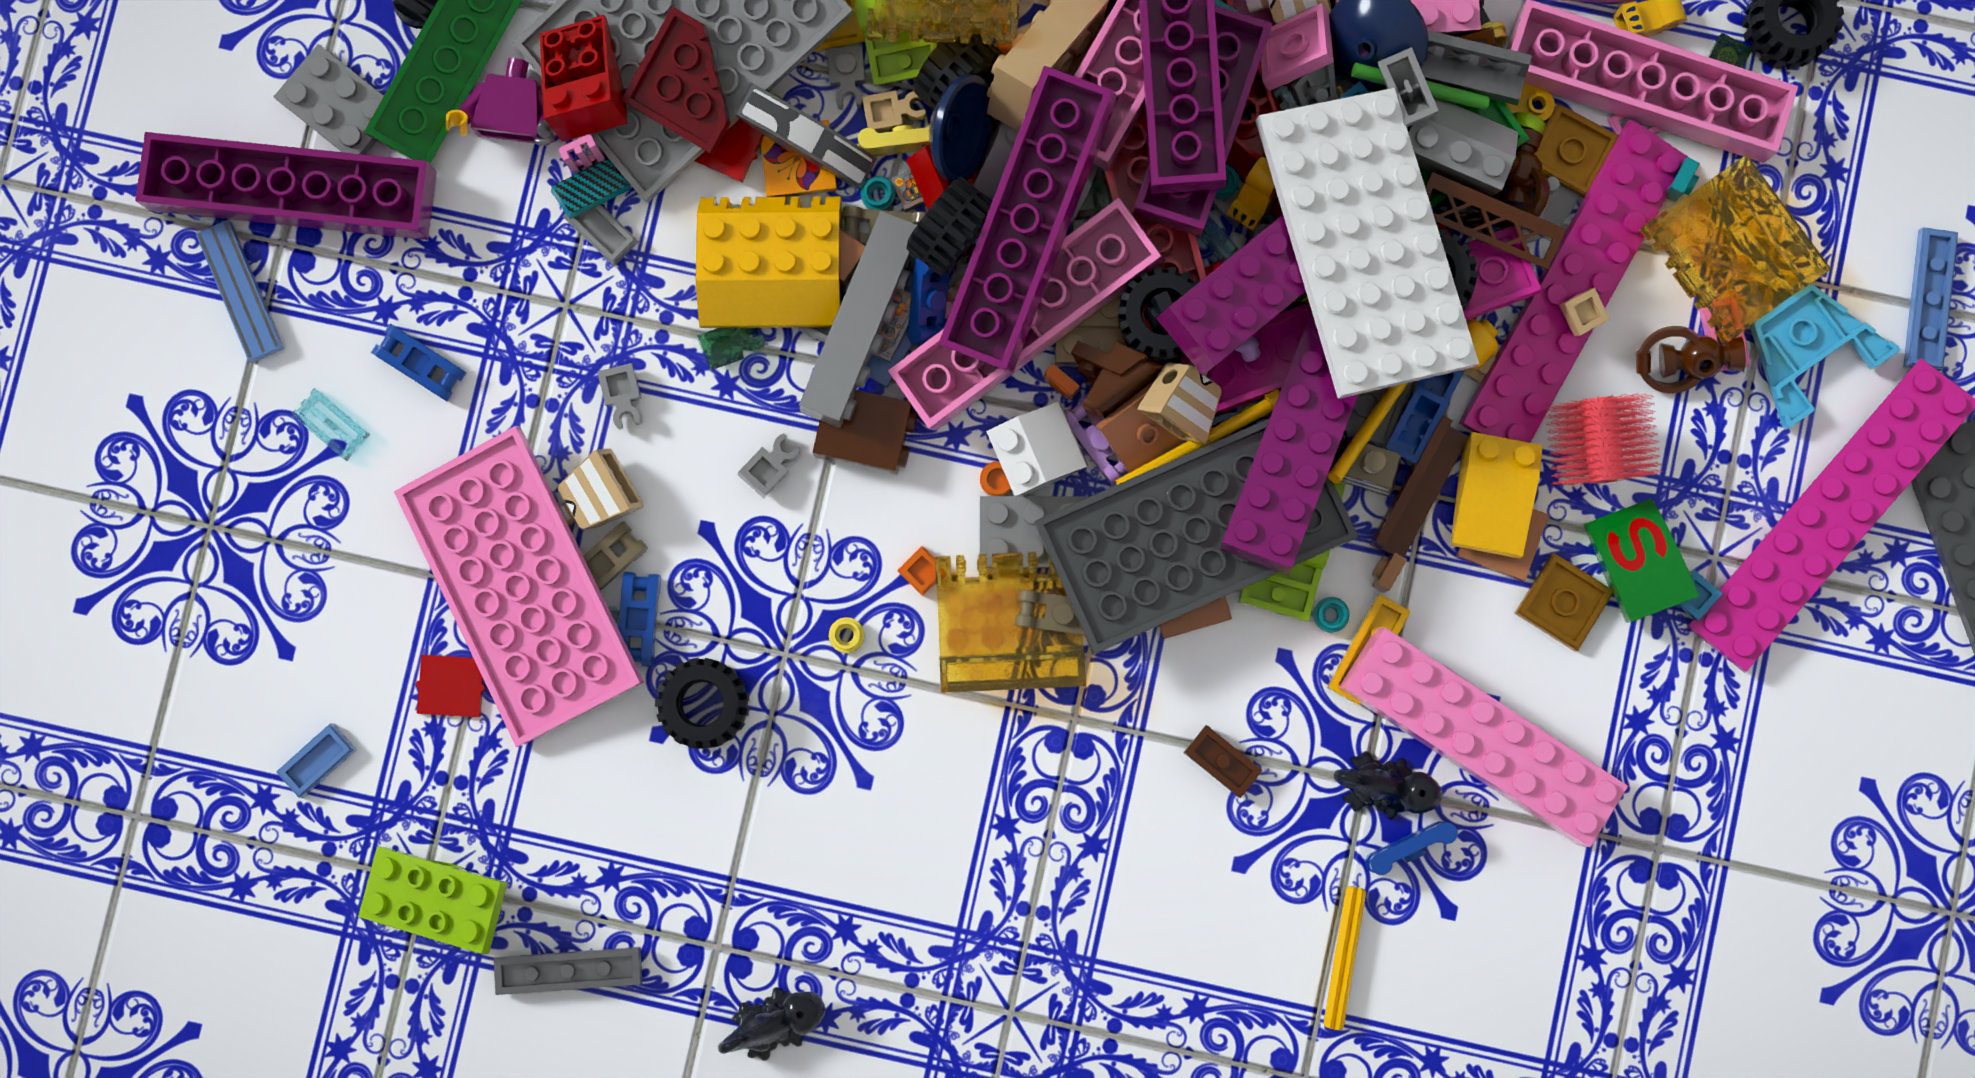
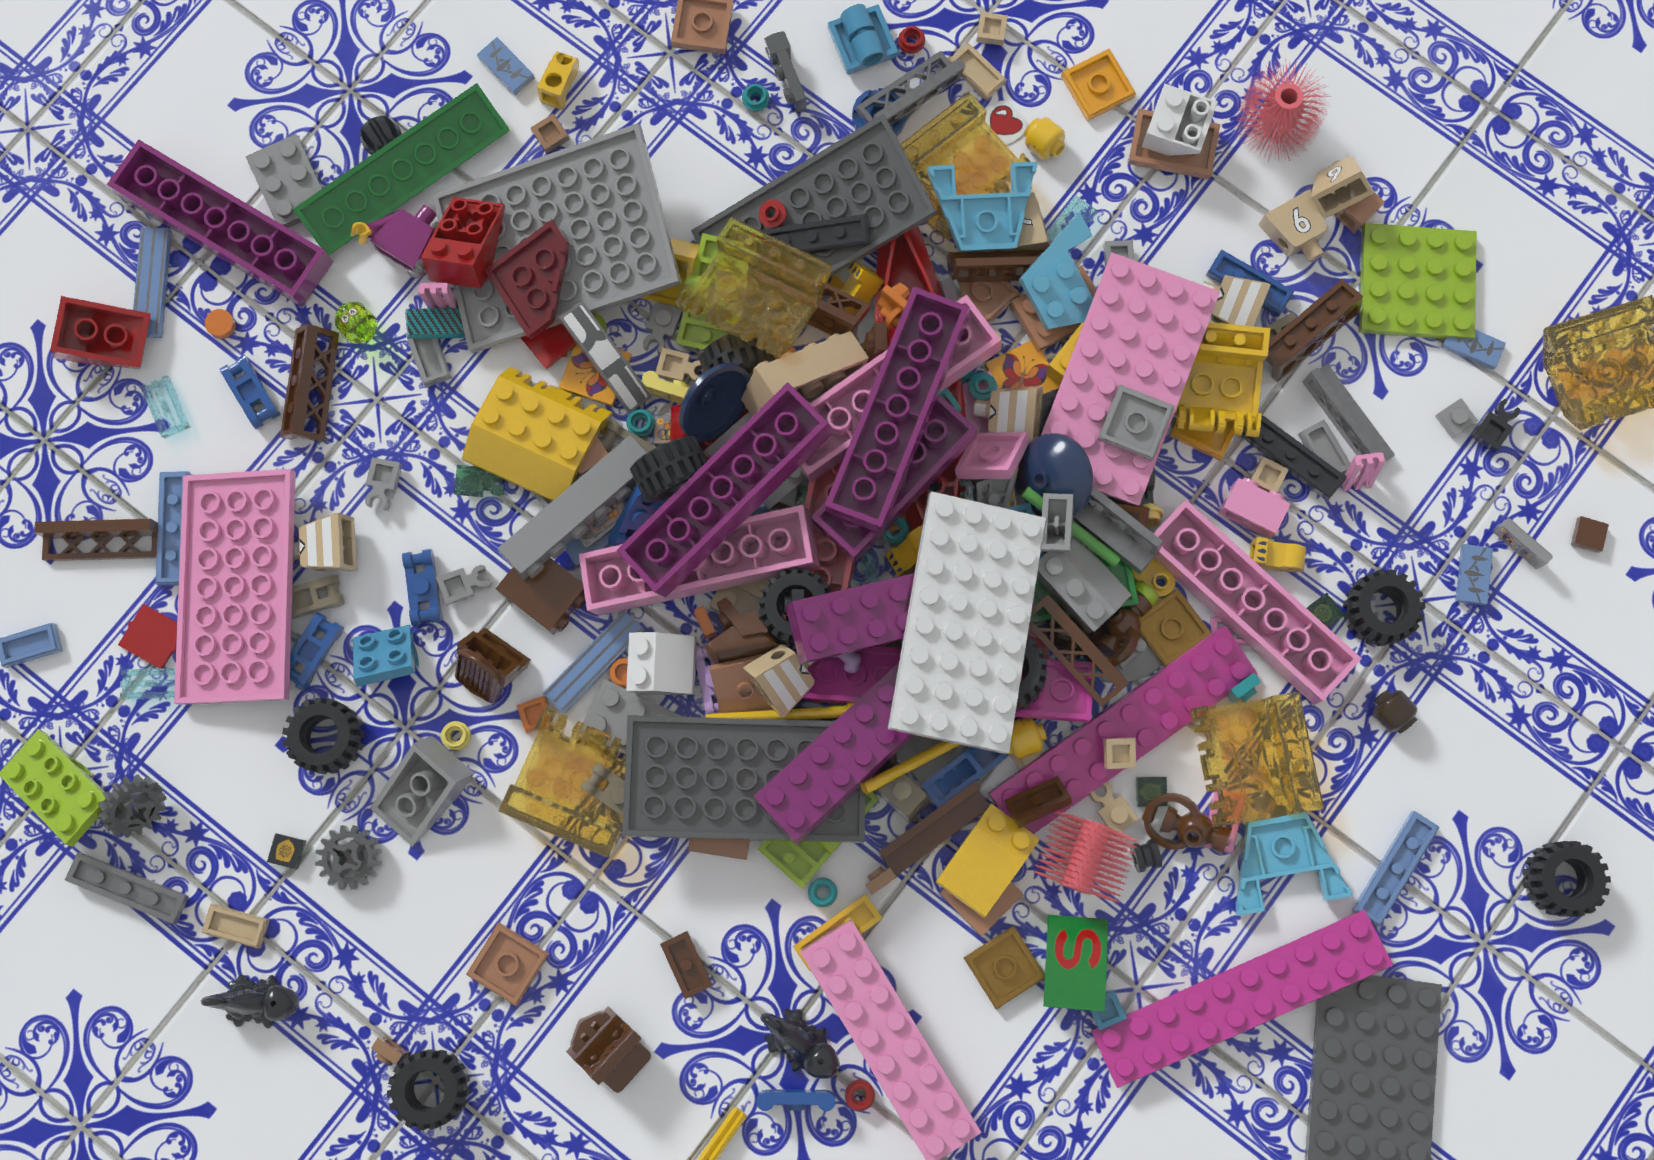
camera: 25 degrees right, 5 degrees down
(216, 376) = (99, 334): none -> red slope
(334, 592) = (93, 529): none -> reddish brown fence
(343, 301) = (220, 323): none -> orange tile
(407, 556) = (169, 527): none -> medium blue tile
(449, 751) = (127, 683): none -> clear light blue tile
(471, 326) = (299, 383): none -> reddish brown fence
(500, 228) = (356, 322): none -> clear neon green head
(530, 879) = (117, 811): none -> dark grey gear
(708, 954) = (235, 926): none -> tan tile
(723, 848) = (286, 851): none -> black tile
(724, 584) = (384, 655): none -> dark azure plate
(725, 490) = (422, 587): none -> blue plate
(794, 838) = (356, 848): none -> dark grey gear
(839, 711) = (421, 789): none -> light grey slope
(845, 541) = (487, 664): none -> reddish brown piece
(947, 1006) = (389, 1051): none -> medium nougat plate
(958, 483) = (592, 662): none -> medium blue tile
(1016, 1056) = (403, 1092): none -> black tyre
(1028, 852) = (507, 964): none -> nougat plate
(1183, 889) = (608, 1049): none -> reddish brown piece
(1486, 810) = (866, 1102): none -> red plate
(1522, 406) = (1038, 801): none -> reddish brown plate
(1604, 378) = (1115, 812): none -> tan plate
(1630, 337) = (1149, 788): none -> clear green tile
(1666, 409) = (1146, 855): none -> black wheel
(1855, 128) = (1395, 711): none -> dark brown head

